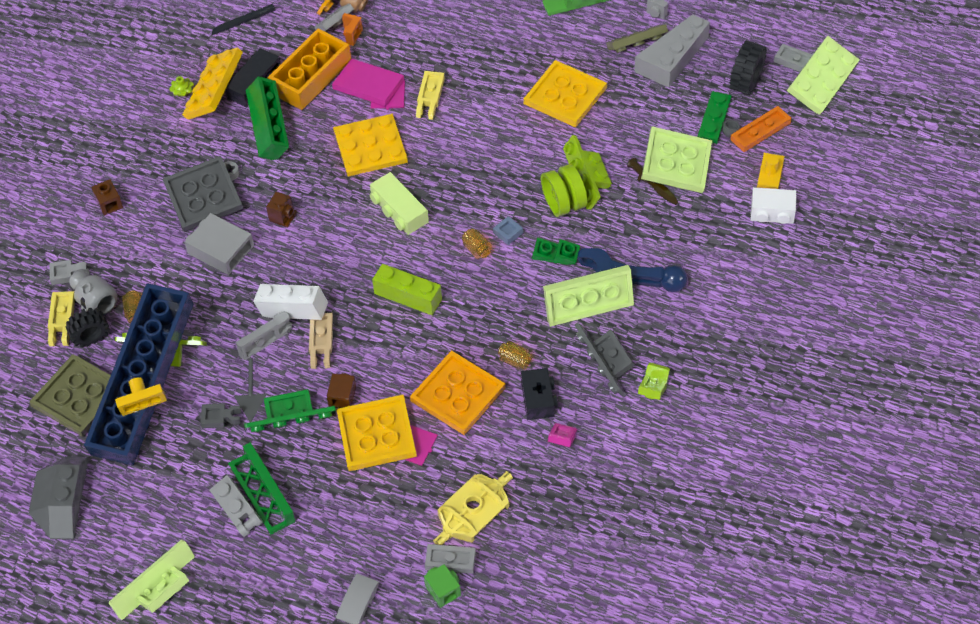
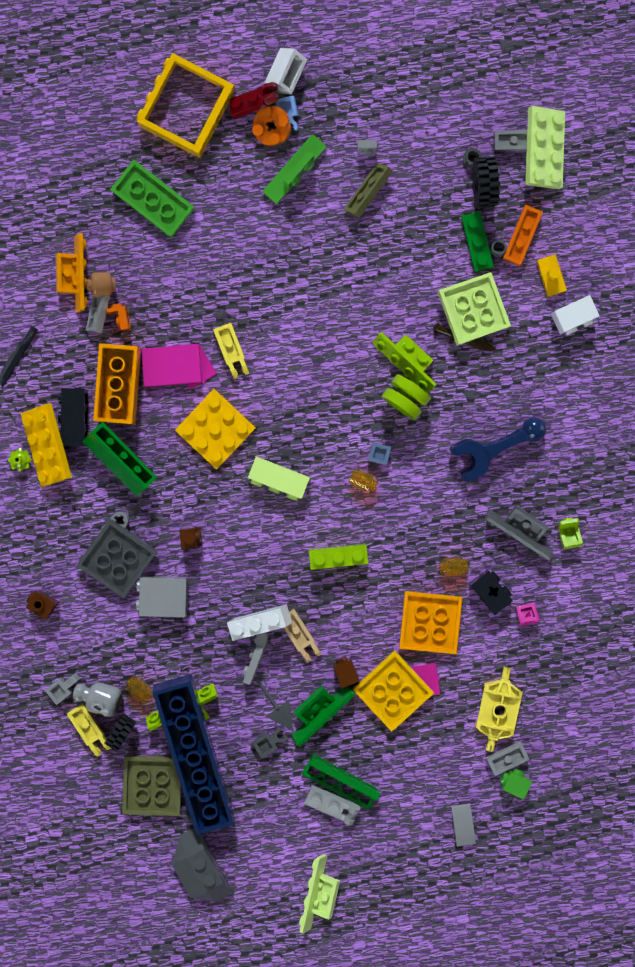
camera: 35 degrees left, 35 degrees up
(140, 397) = (216, 785): yellow tile -> none
(561, 253) = (427, 451): green slope -> none
(565, 93) = (343, 286): yellow plate -> none
(588, 295) = (482, 488): yellowish green plate -> none
(673, 51) = (409, 193): light grey wedge -> none

